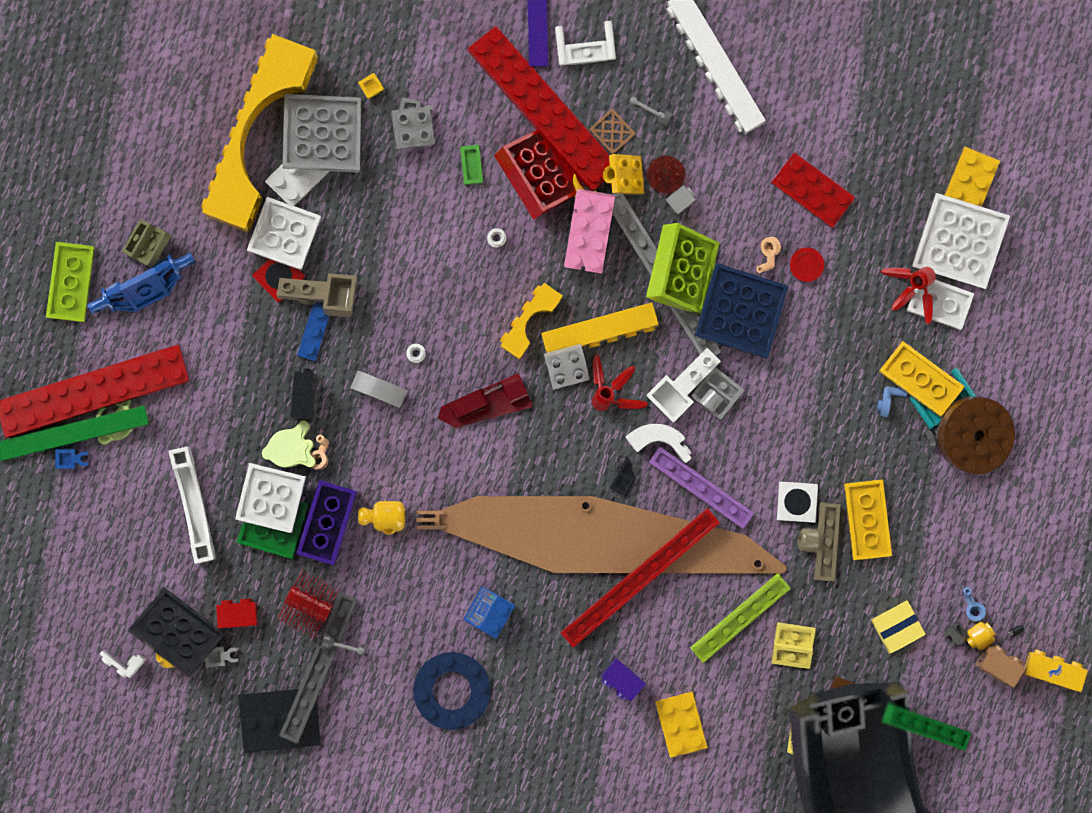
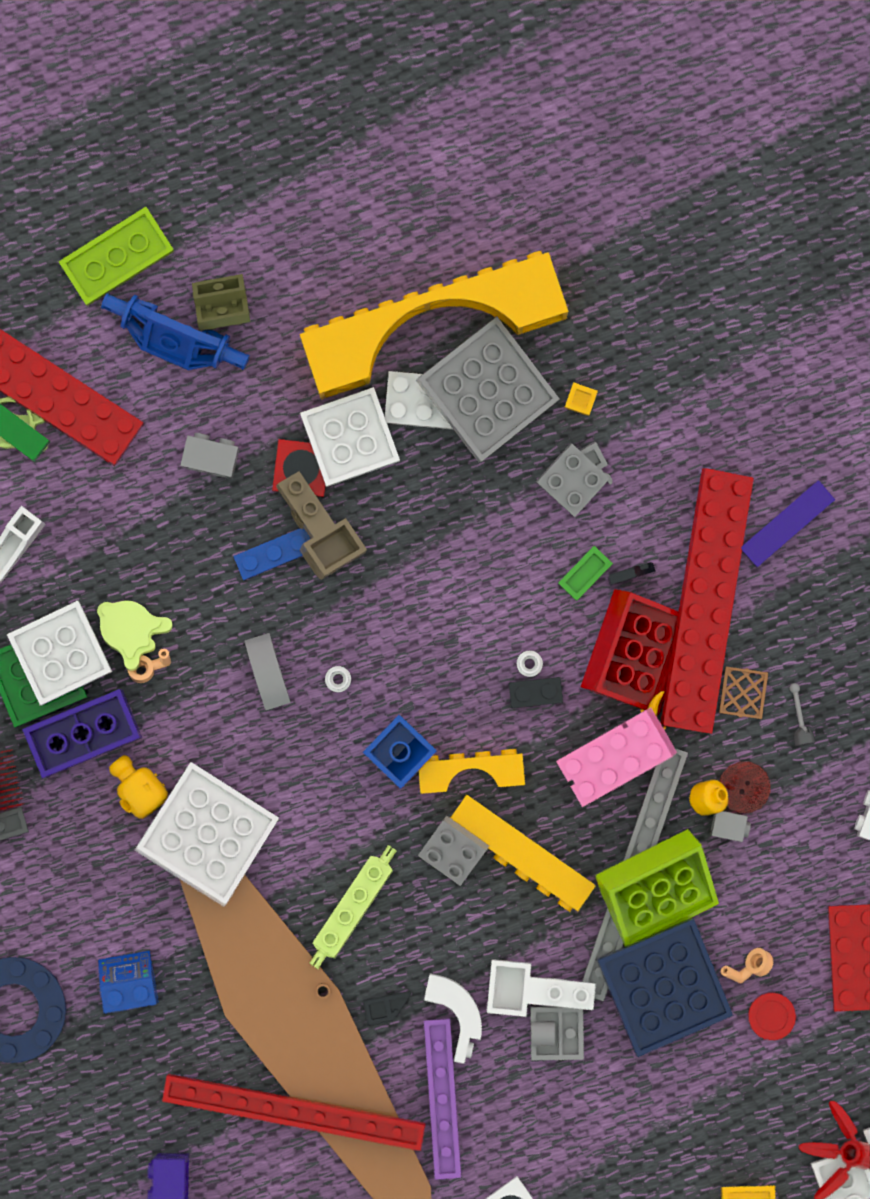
camera: 50 degrees right, 0 degrees up
(229, 321) = (210, 456): none -> light grey brick
(303, 394) = (195, 598): black brick -> none
(442, 498) = (207, 834): none -> white plate
(485, 350) = (399, 751): none -> blue slope
(487, 403) = (344, 796): dark red panel -> none
(492, 139) = (631, 573): none -> black tile
(516, 248) = (535, 692): none -> black plate
(551, 450) = (352, 907): none -> yellowish green plate
(586, 52) = (805, 596): white plate -> none
(605, 396) = (456, 916): red plant -> none
(625, 174) = (708, 744): yellow plate -> none
(655, 198) = (708, 797): none -> yellow head

